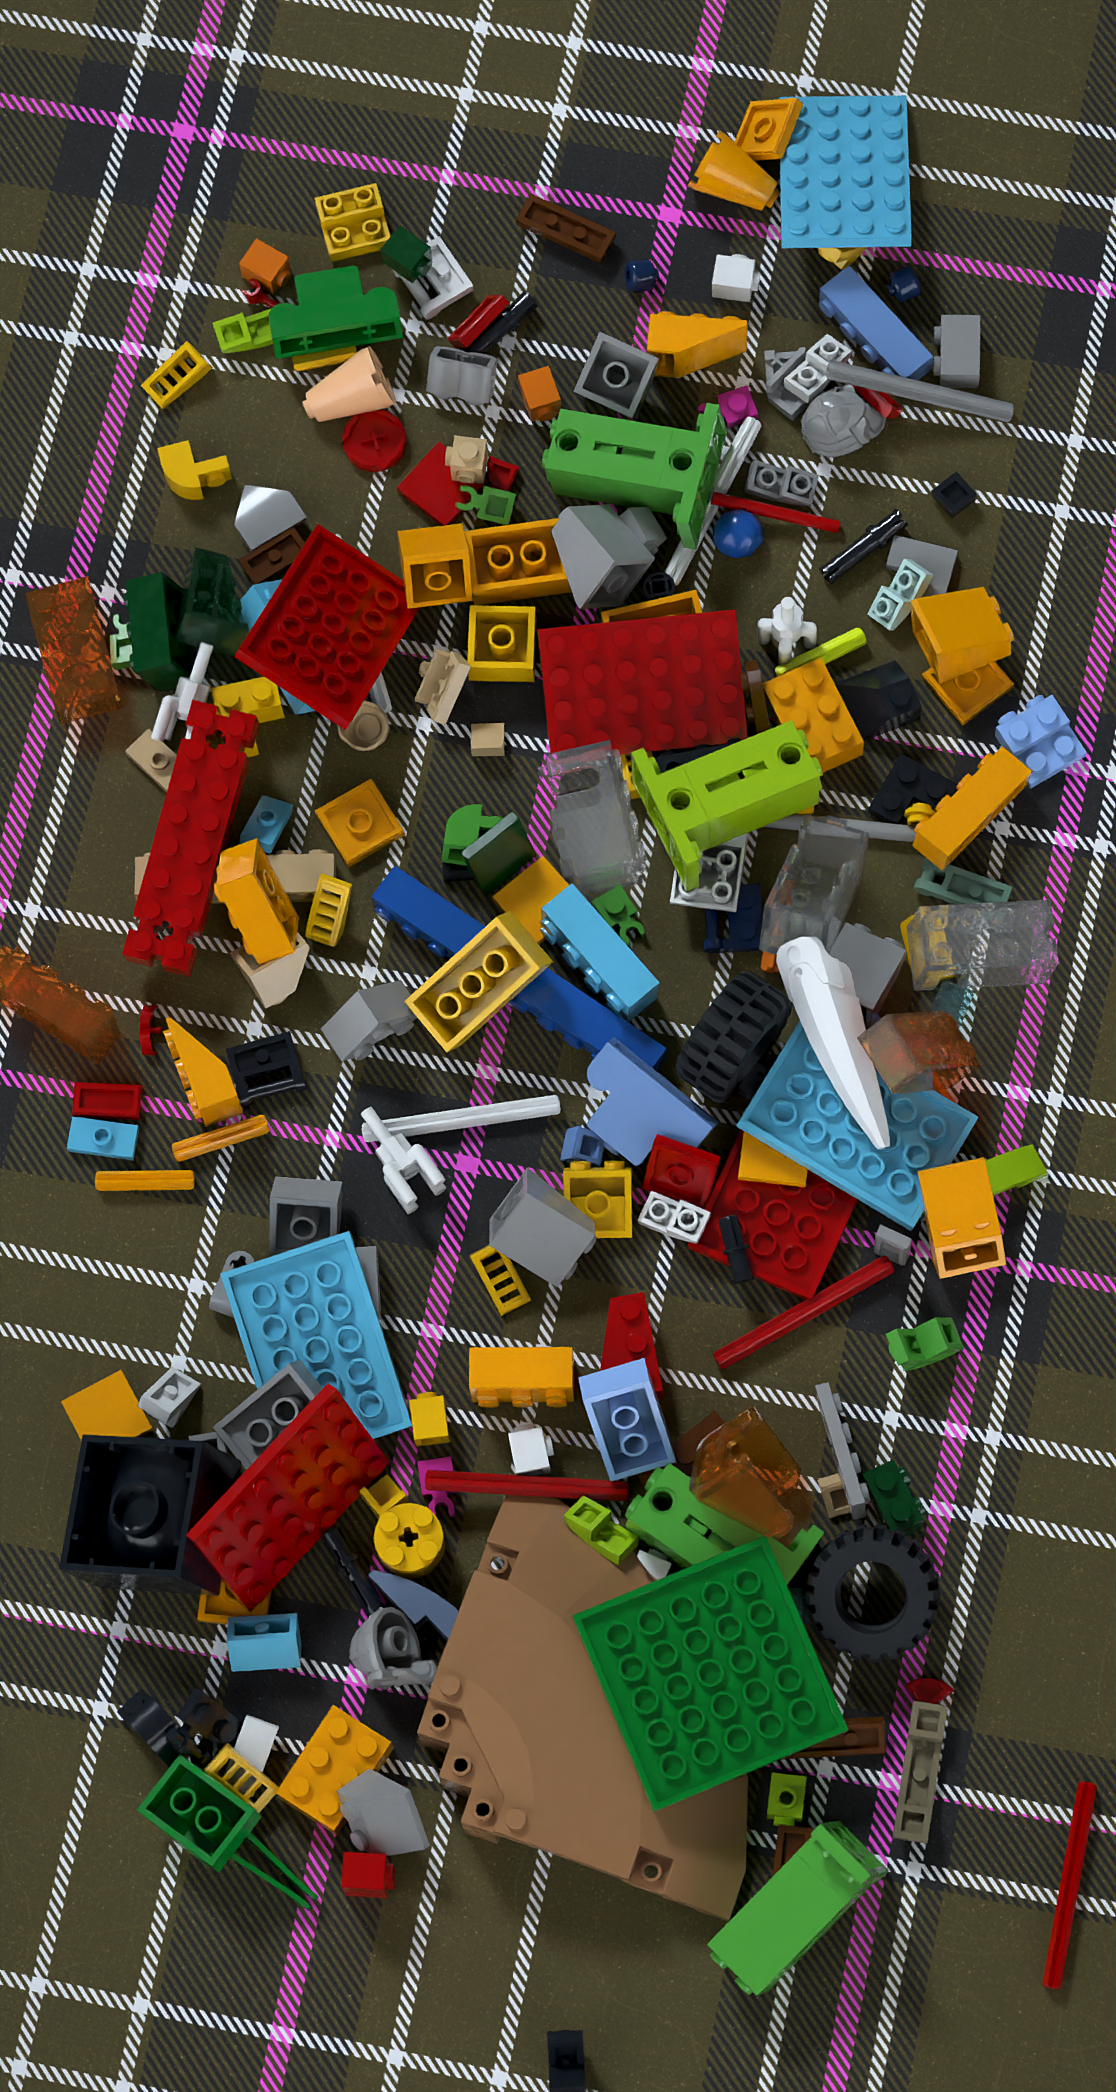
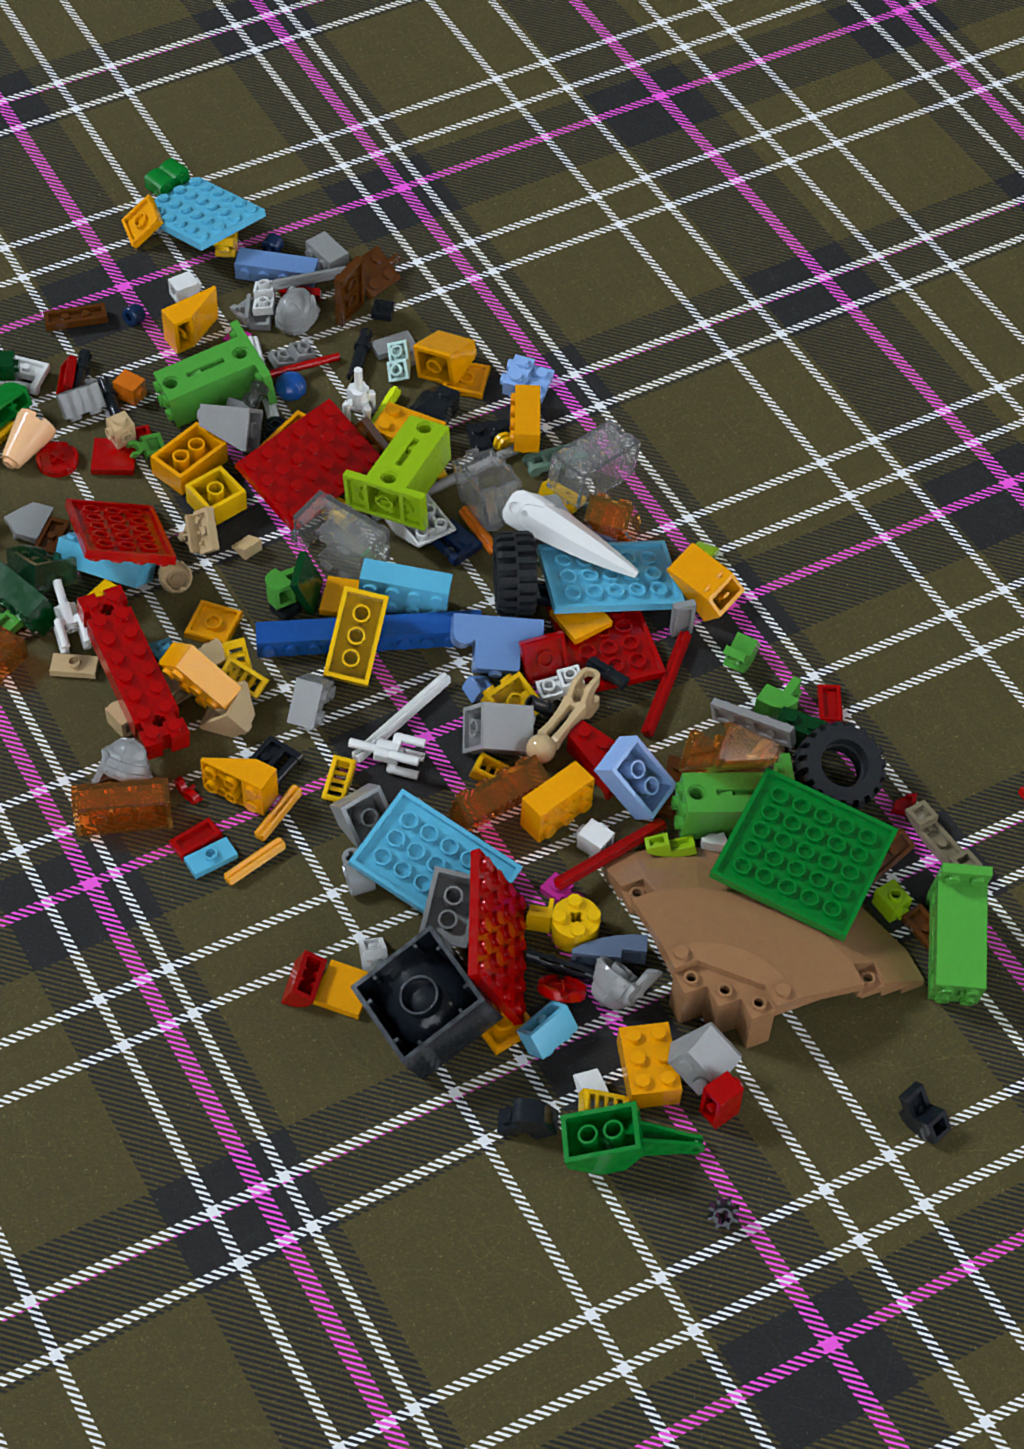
camera: 50 degrees left, 20 degrees down
(70, 1373) = (304, 980): none -> red brick
(91, 954) = (123, 761): none -> light grey head
(210, 1721) = (559, 1093): black plate -> none
(257, 1995) = (729, 1216): none -> black gear
(323, 1606) = (562, 990): none -> red tile
(324, 1129) = (341, 762): none -> yellow slope
(329, 928) = (261, 686): none -> yellow slope
(429, 1419) = (531, 859): yellow brick -> none
(435, 565) = (149, 480): light orange slope -> none
(462, 1316) = (497, 795): none -> clear orange brick
(506, 389) = (109, 395): none -> black pin
(617, 375) = (163, 348): light grey slope -> none
(624, 1241) = (545, 708): none -> black axle
(656, 533) = (255, 394): none -> clear smoke bush
(663, 1265) = (579, 703): none -> tan piece
(734, 176) = (143, 247): light orange cone -> none
(862, 72) = (166, 177): none -> green brick
(900, 1443) = (772, 699): none -> bright green brick
(917, 445) = (349, 291): none -> reddish brown plate
(969, 1493) = (829, 703): none -> red tile
(989, 427) = (379, 272): none -> reddish brown plate

